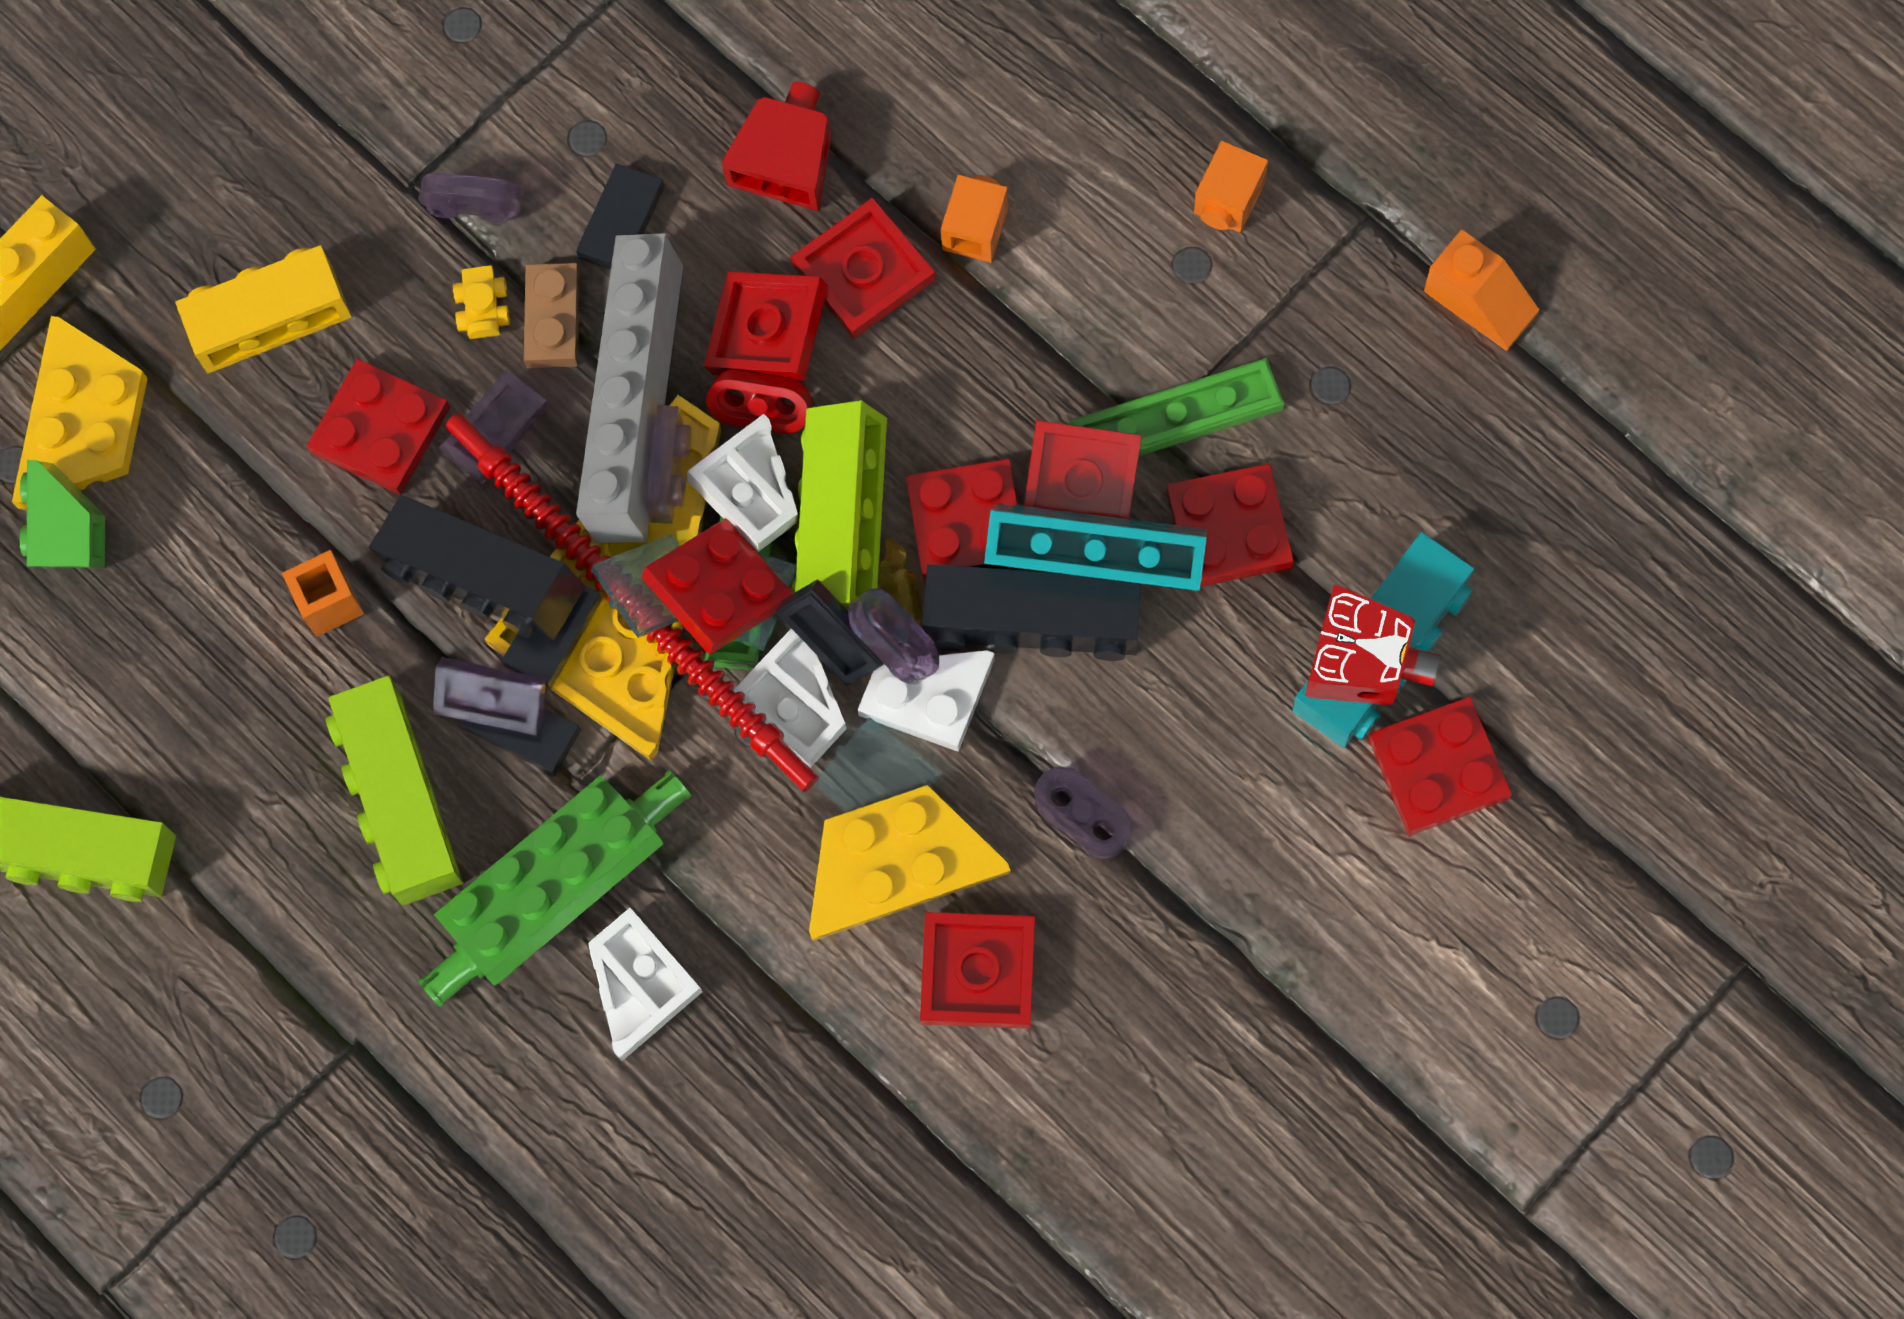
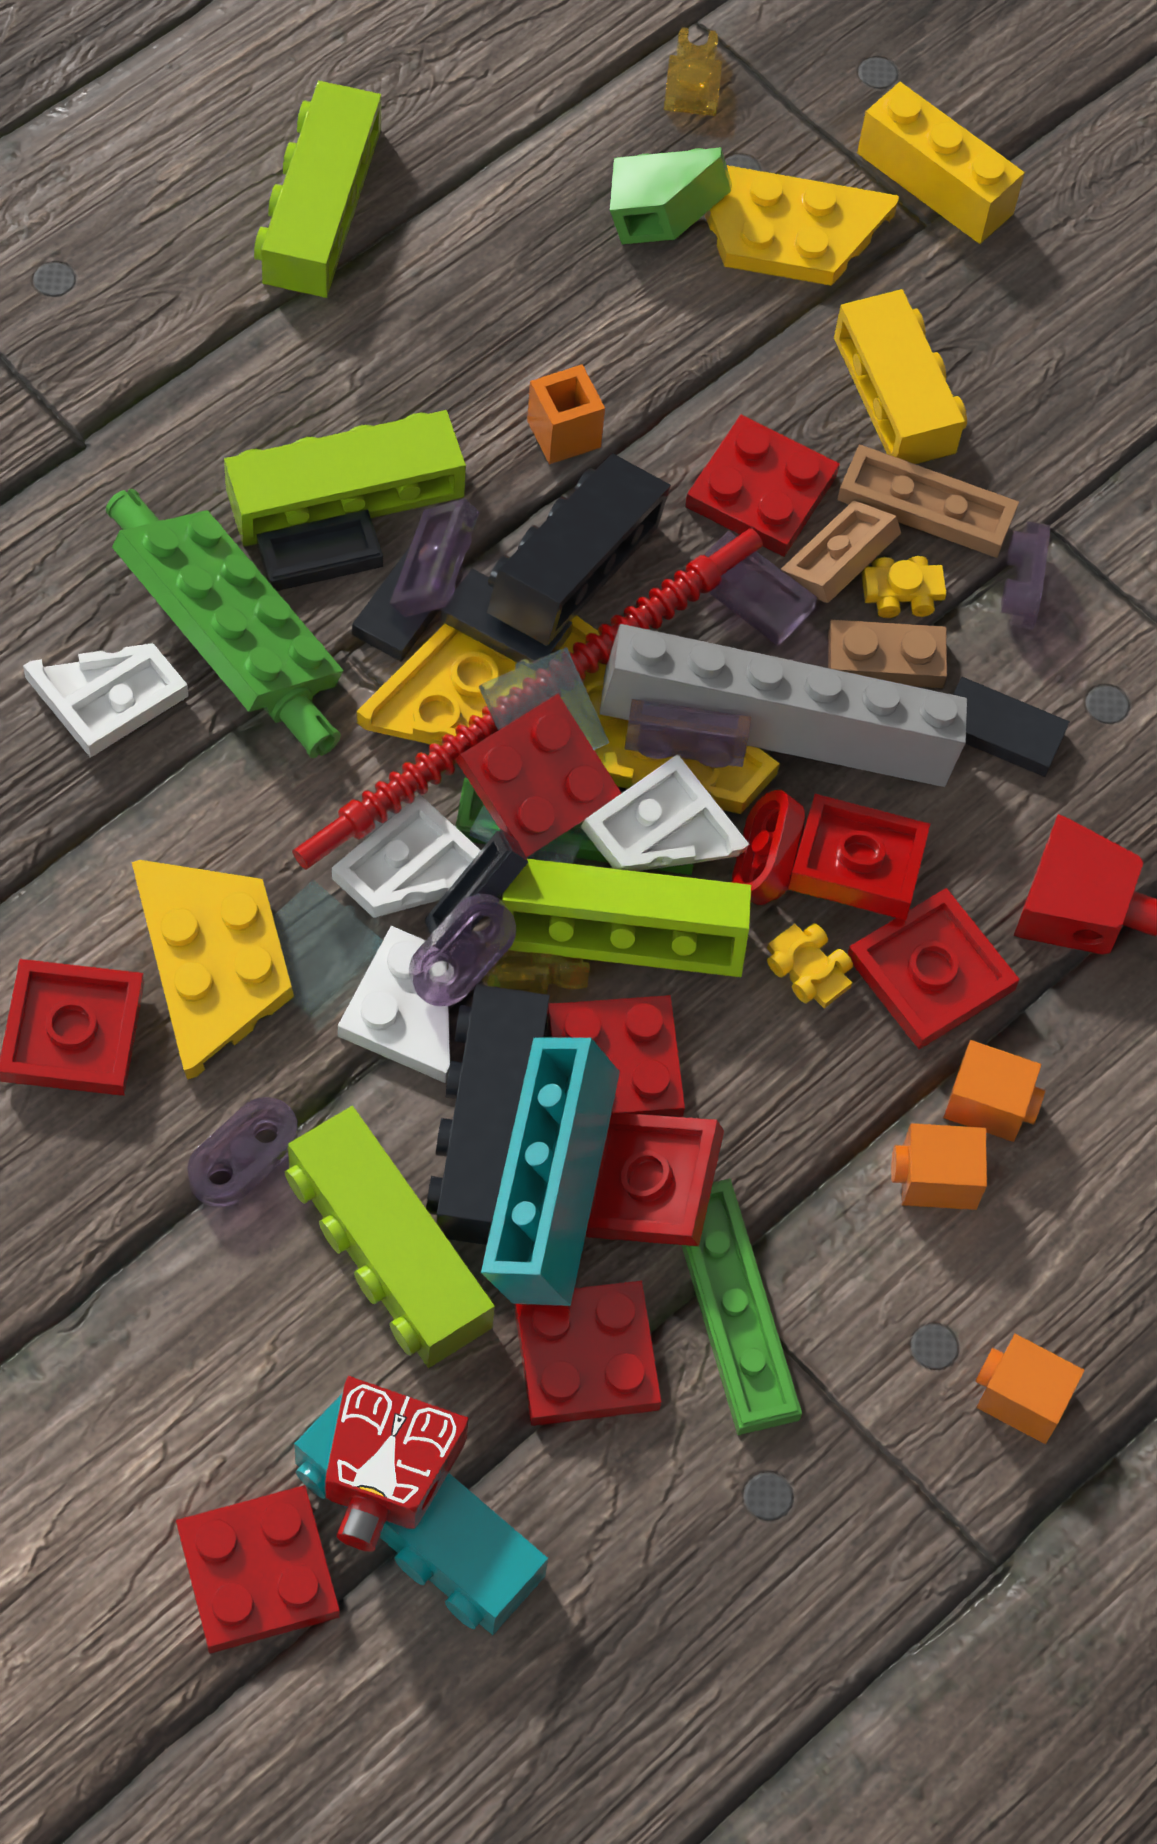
camera: 80 degrees right, 10 degrees down
(393, 283) = (929, 500): none -> medium nougat plate
(452, 352) = (842, 549): none -> medium nougat plate
(468, 811) = (320, 550): none -> black tile
(865, 370) = (808, 967): none -> yellow piece
(1046, 255) = (941, 1166): none -> orange brick
(1150, 684) = (389, 1238): none -> lime brick
(1481, 290) = (879, 1684): orange slope -> none

